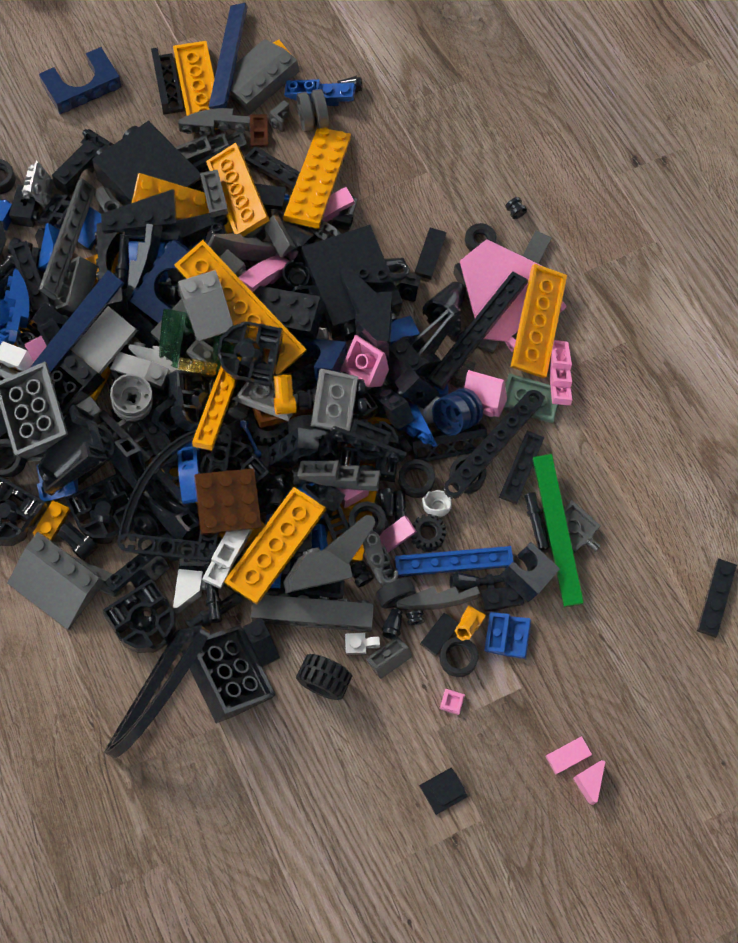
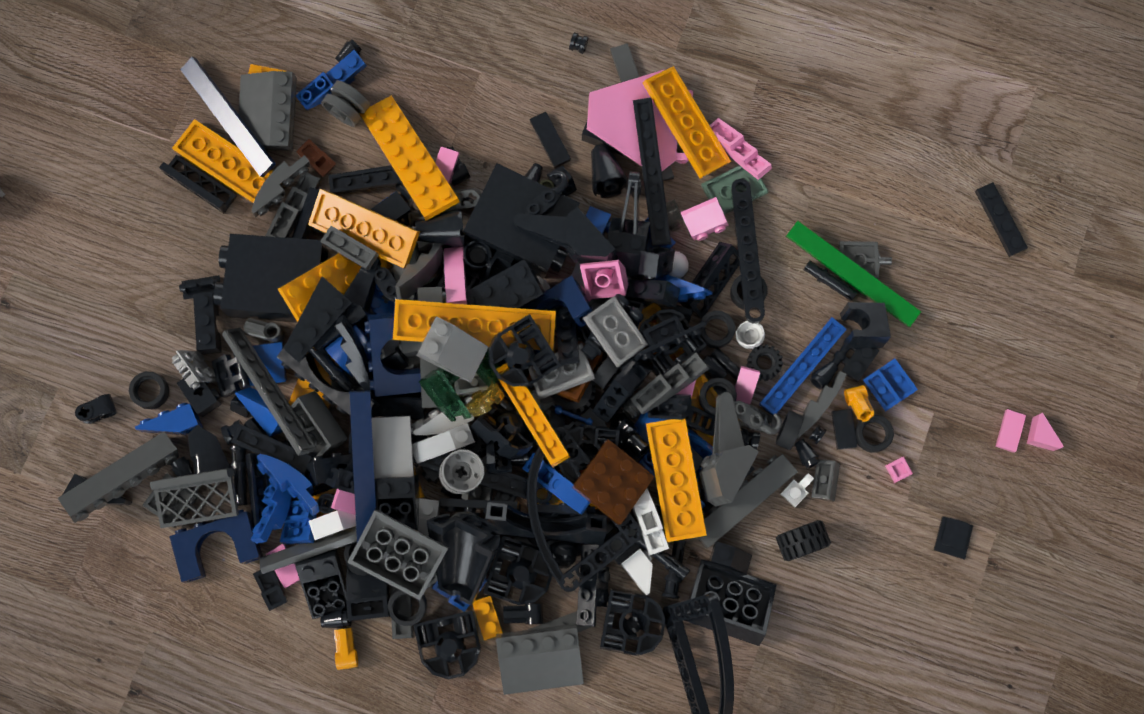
camera: 40 degrees left, 10 degrees up
(69, 97) = (133, 271): dark blue arch -> none
(278, 116) = (319, 131): dark grey bracket -> none
(279, 236) = (437, 236): dark grey slope -> none
(284, 400) = (582, 366): light orange piece -> none
(457, 411) = (700, 251): dark blue wheel -> none
(479, 228) = (575, 104): black tyre -> none
(521, 467) = (780, 249): black plate -> none

